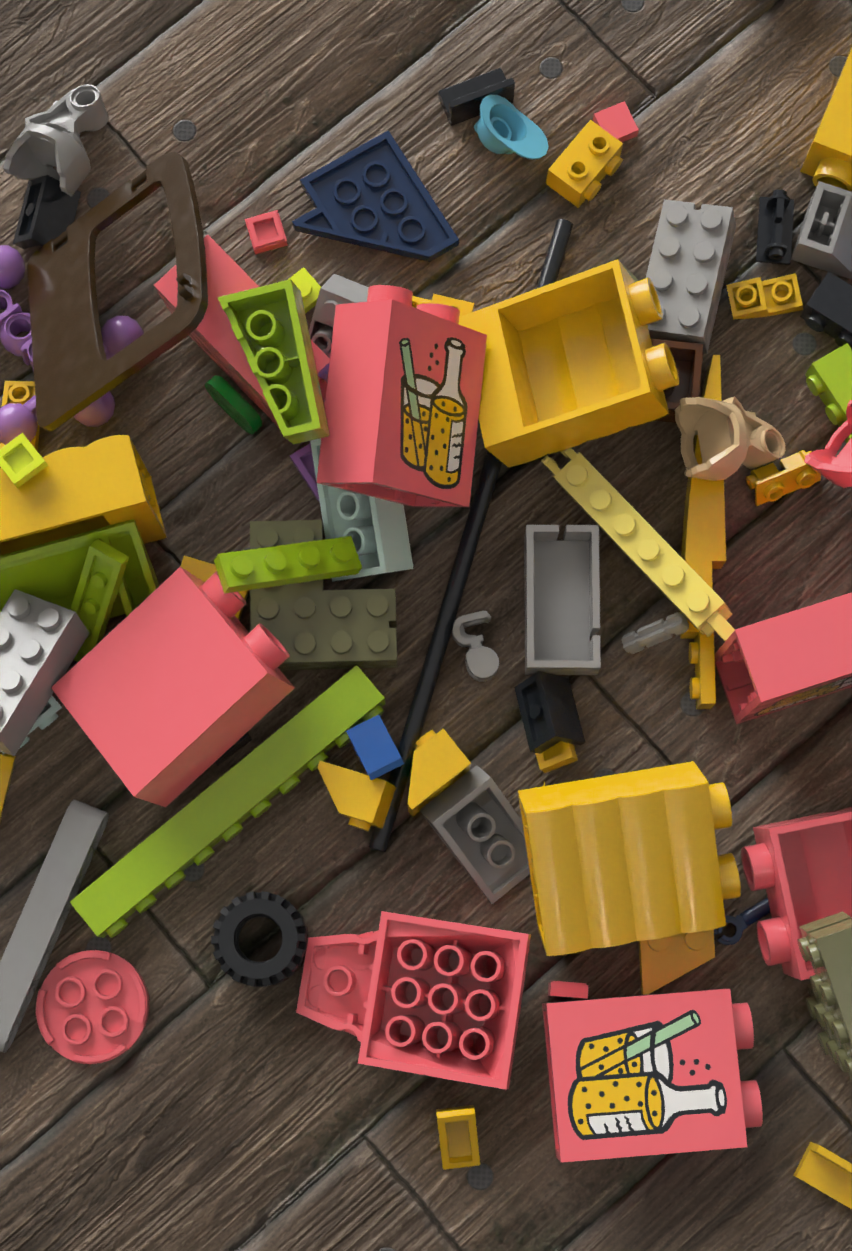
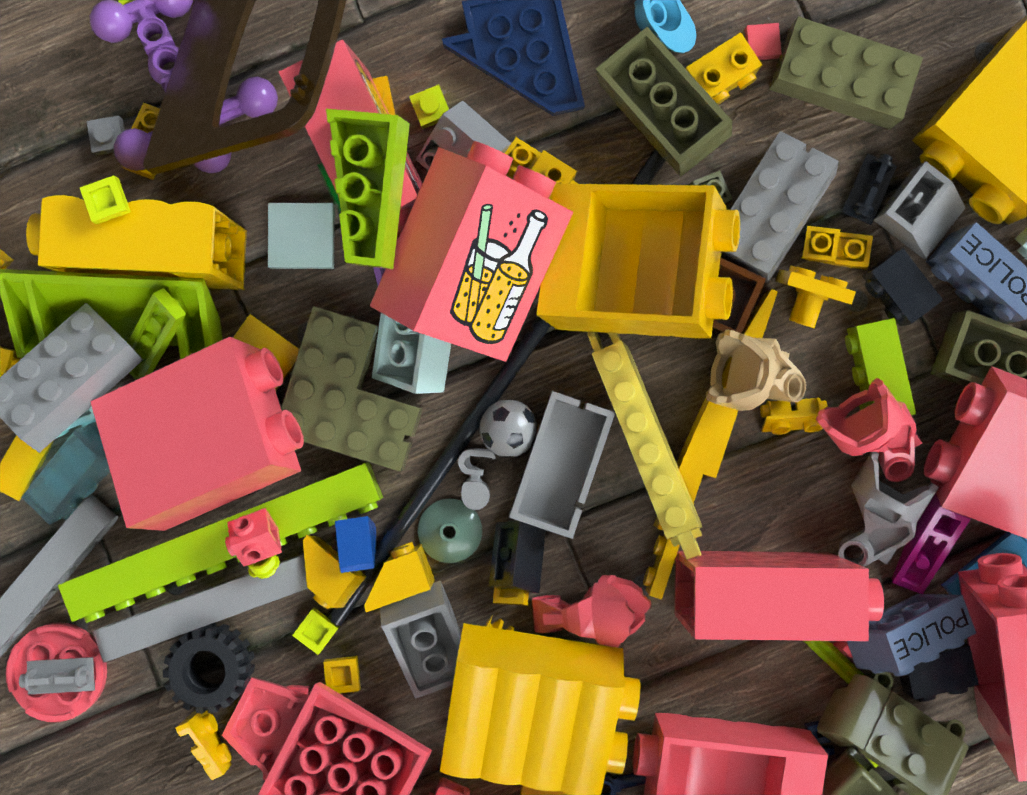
camera: 15 degrees right, 10 degrees up
(50, 777) = (69, 475): none -> clear light blue wedge
(100, 1003) = (58, 676): none -> light grey hinge
(210, 462) = (301, 235): none -> light aqua tile
(230, 879) = (199, 610): none -> light grey beam
(266, 232) = (417, 39): coral tile -> none
(266, 774) = (253, 537): none -> coral brick
(275, 1010) = (208, 747): none -> yellow wing
(283, 803) = (264, 568): none -> neon yellow plate
(287, 564) = (328, 361): lime plate -> none
(361, 864) = (315, 631): none -> neon yellow plate
(406, 899) = (342, 674): none -> yellow plate
(472, 732) = (464, 521): none -> sand green dish
(493, 582) = (508, 428): none -> light grey piece
(538, 208) = (664, 101): none -> olive brick
(655, 633) = (630, 519): light grey axle -> none
(663, 733) = (605, 613): none -> coral piece
(708, 127) = (846, 73): none -> olive brick
(754, 344) = (812, 293): none -> yellow plate

